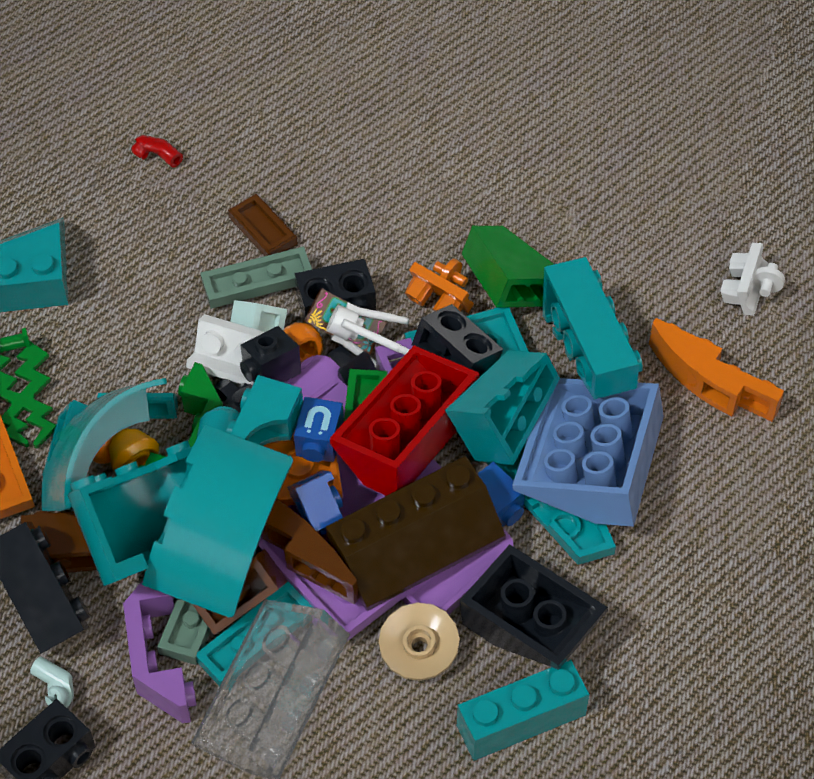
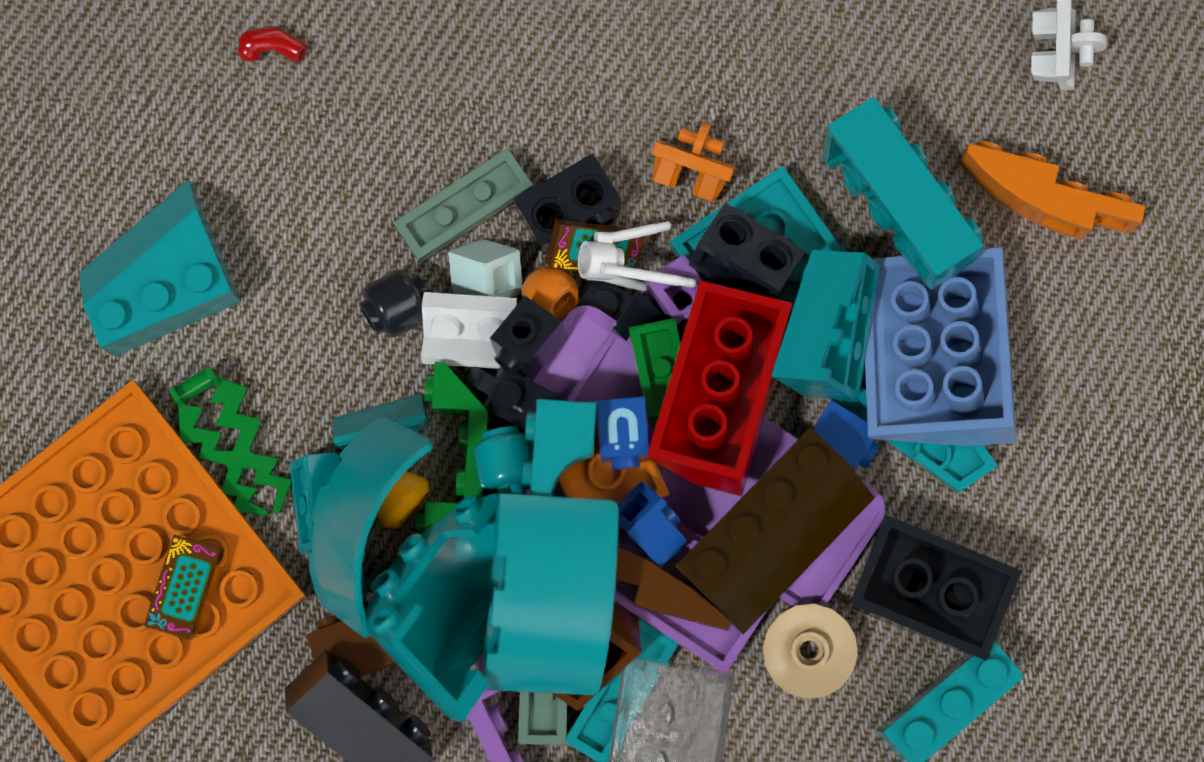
camera: 15 degrees left, 25 degrees up
(178, 323) = (393, 303): none -> black head
(262, 226) = (443, 124): reddish brown tile -> none
(506, 266) = (770, 112): green slope -> none

